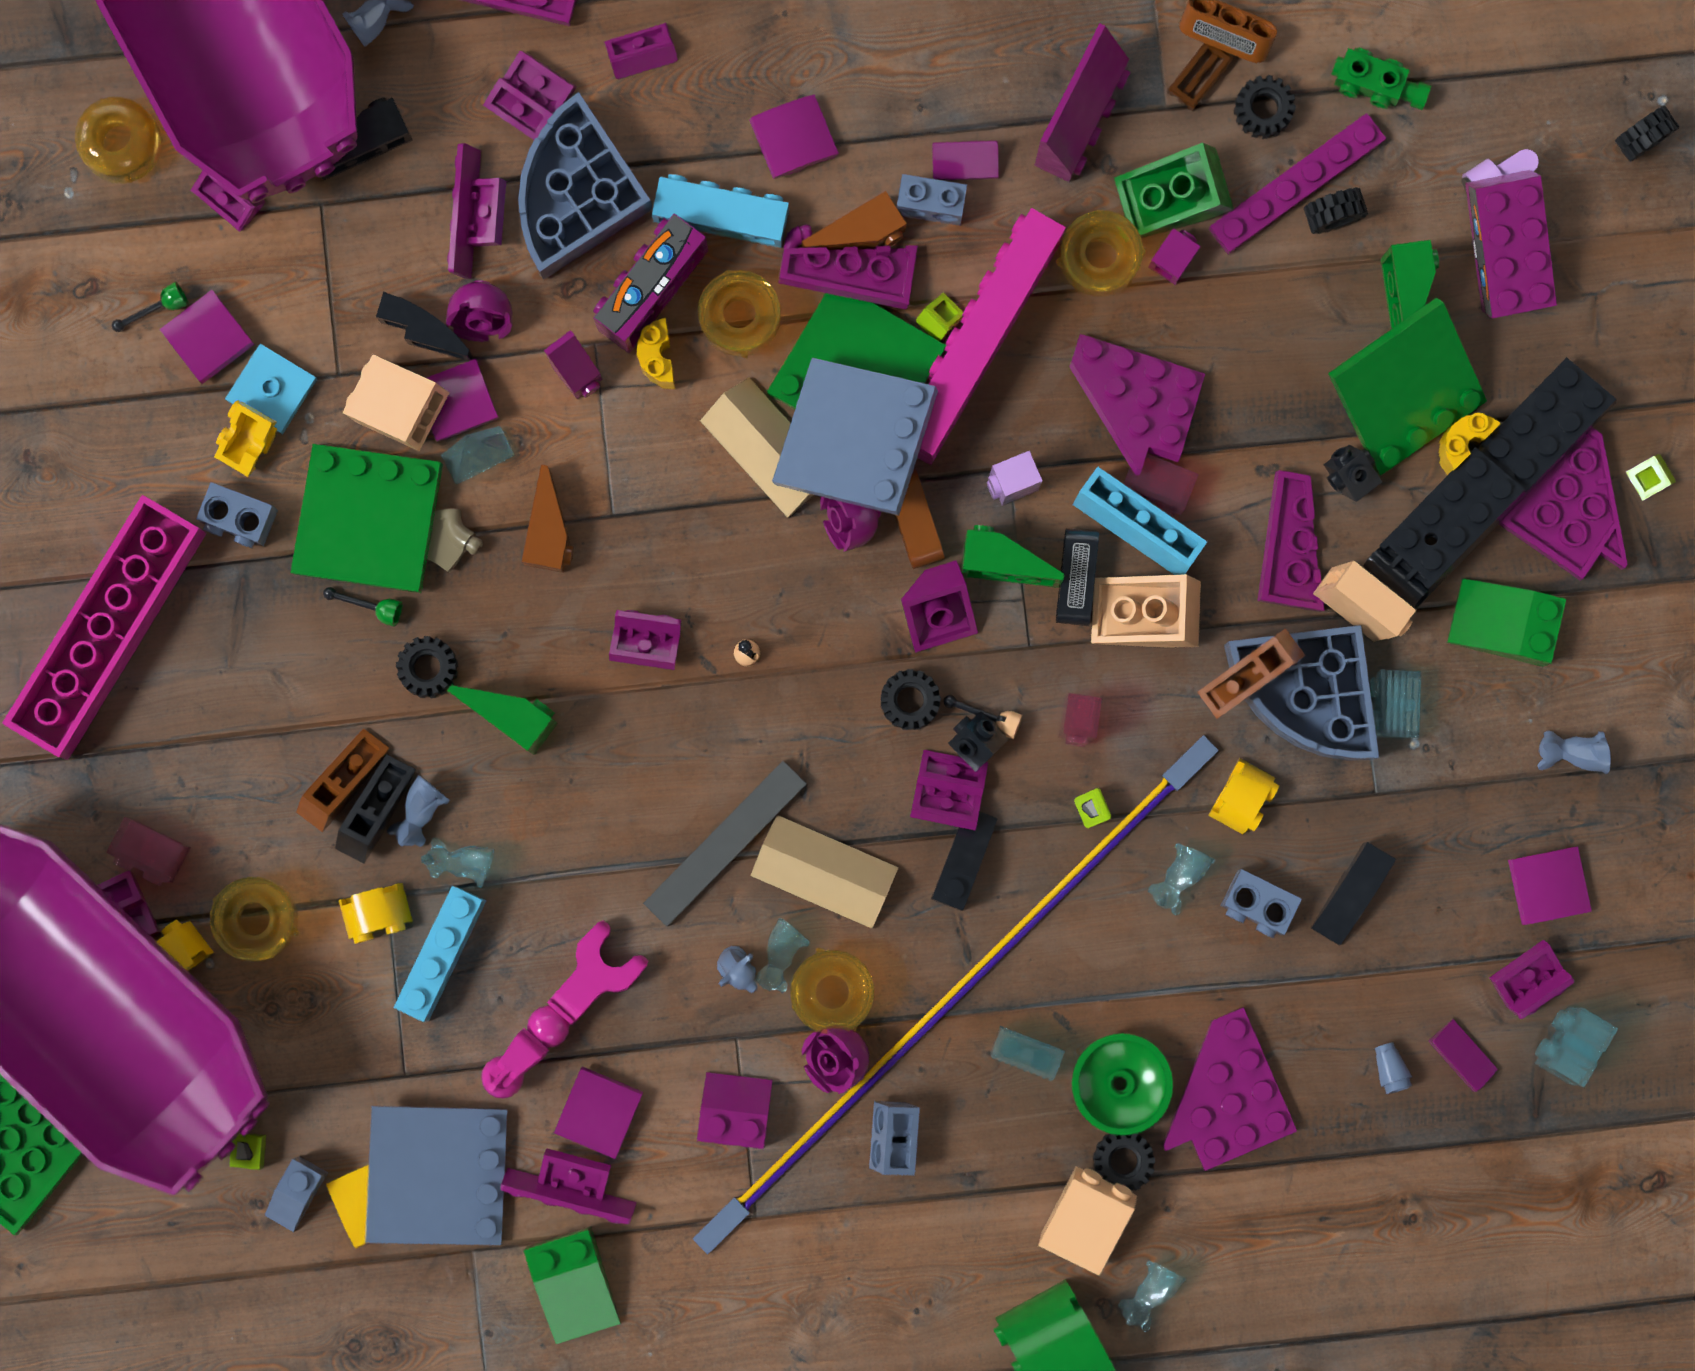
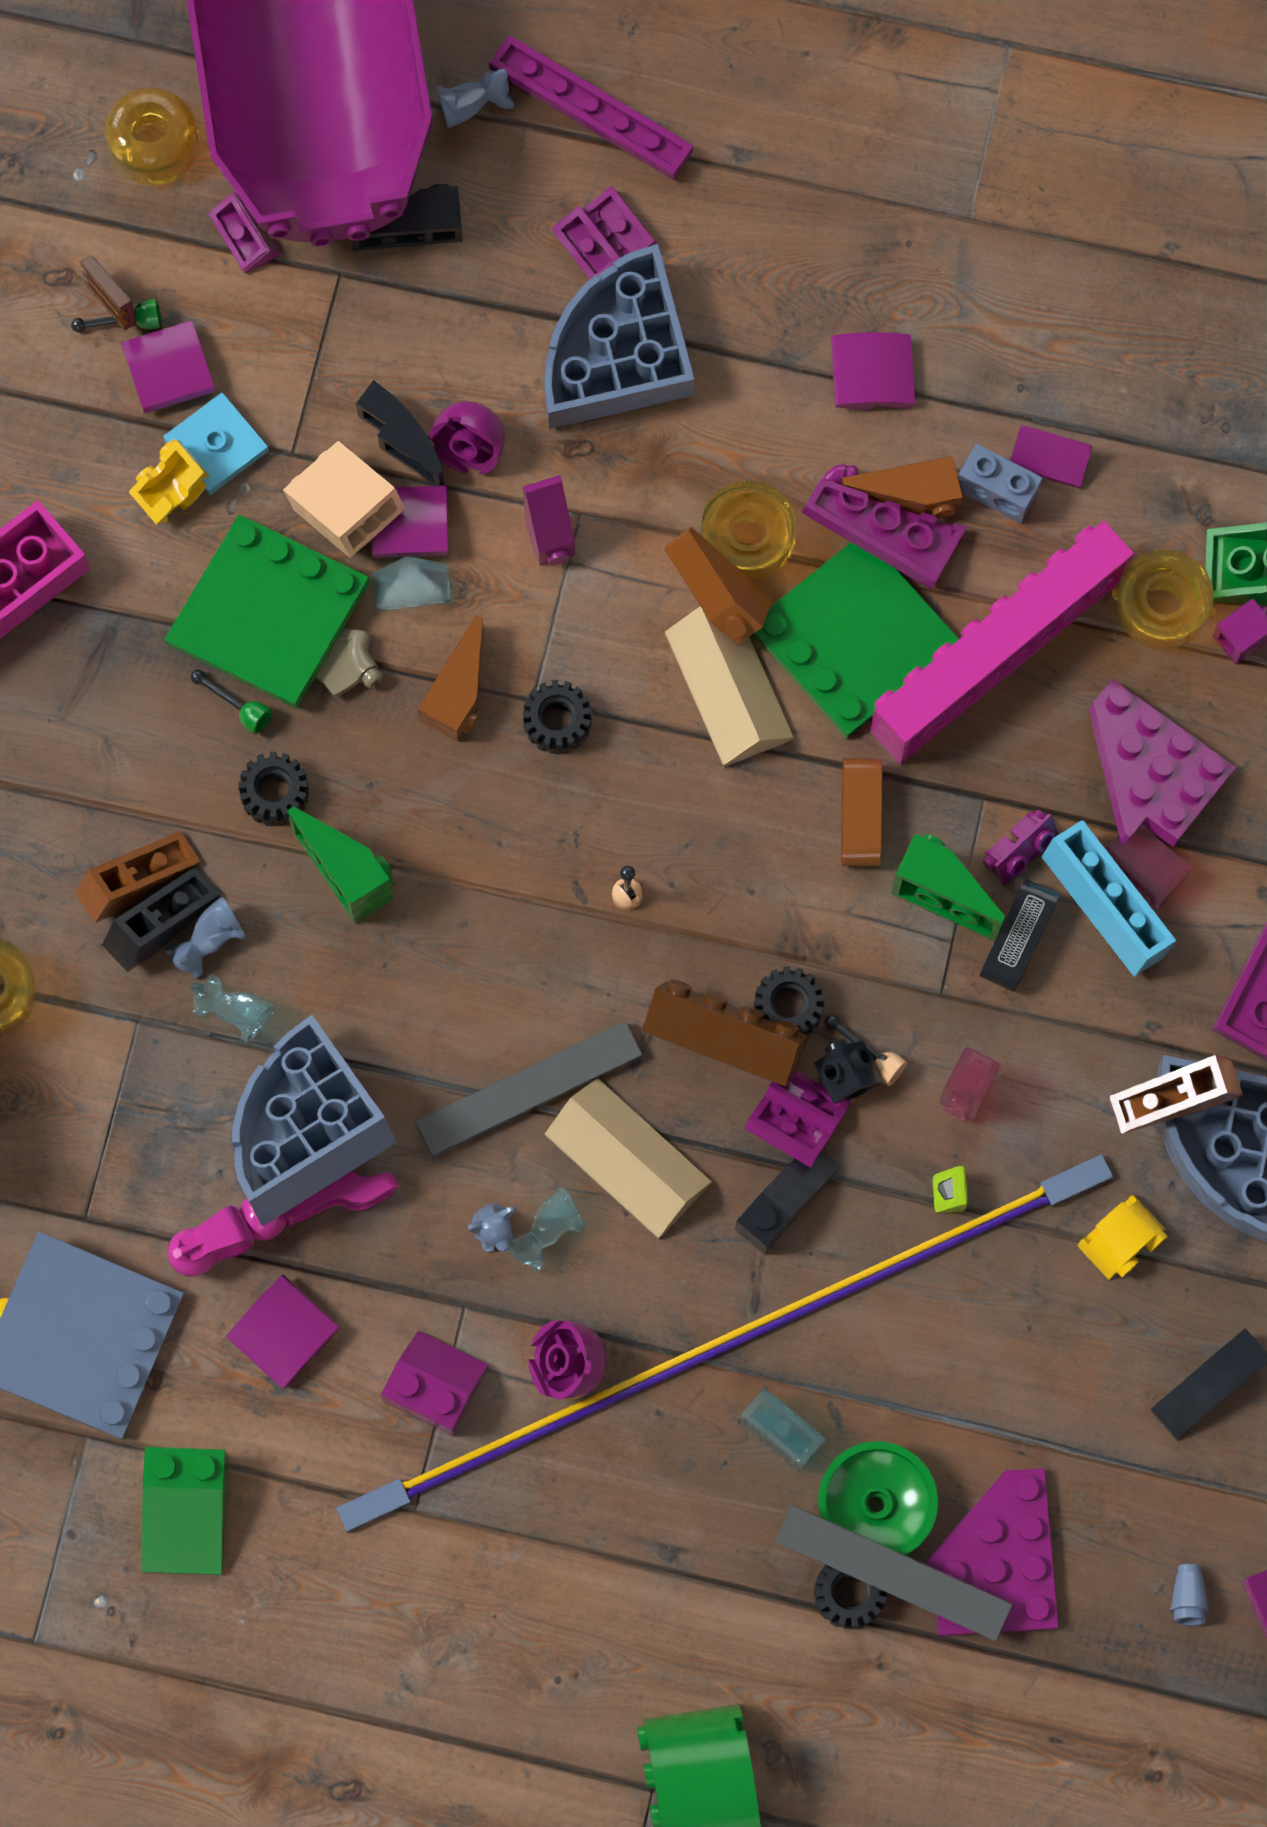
camera: 20 degrees right, 10 degrees down
(133, 291) = (108, 292): none -> reddish brown tile
(239, 509) = (136, 554): sand blue brick -> none
(375, 911) = (119, 1027): yellow cylinder -> none
(440, 954) = (173, 1097): medium azure brick -> none
(475, 213) = (502, 334): magenta bracket -> none
(553, 945) = (302, 1123): none -> sand blue brick
(571, 1184) = (225, 1397): magenta bracket -> none
(630, 506) = (553, 695): none -> black tyre
(641, 51) = (740, 230): magenta slope -> none
(645, 639) = (522, 839): magenta bracket -> none
(650, 282) = (663, 466): brick -> none
(650, 347) = (637, 538): yellow cylinder -> none
(722, 211) = (766, 420): medium azure brick -> none
(735, 373) = (719, 586): none -> dark orange slope
(826, 964) = (594, 1254): clear yellow piece -> none
(848, 523) = (794, 783): magenta cylinder -> none
(855, 436) = (827, 694): sand blue plate -> none
(868, 744) = (725, 1032): none -> reddish brown brick
(894, 1138) = (601, 1471): sand blue brick -> none
(938, 607) = (854, 915): magenta slope -> none
(940, 317) = (962, 608): lime slope -> none
(1014, 478) = (986, 803): lavender brick -> none
(1048, 515) = (1033, 837): none -> magenta hinge
(1082, 107) = (1197, 438): magenta slope -> none
(1088, 1220) = (786, 1638): light nougat brick -> none
(1146, 611) = (1085, 997): light nougat slope -> none
(1154, 1138) = (893, 1572): none -> dark grey tile
(1155, 1290) = (835, 1747): clear light blue animal -> none
(1184, 872) = (1028, 1294): clear light blue animal -> none
(1263, 895) = (1110, 1352): sand blue brick -> none

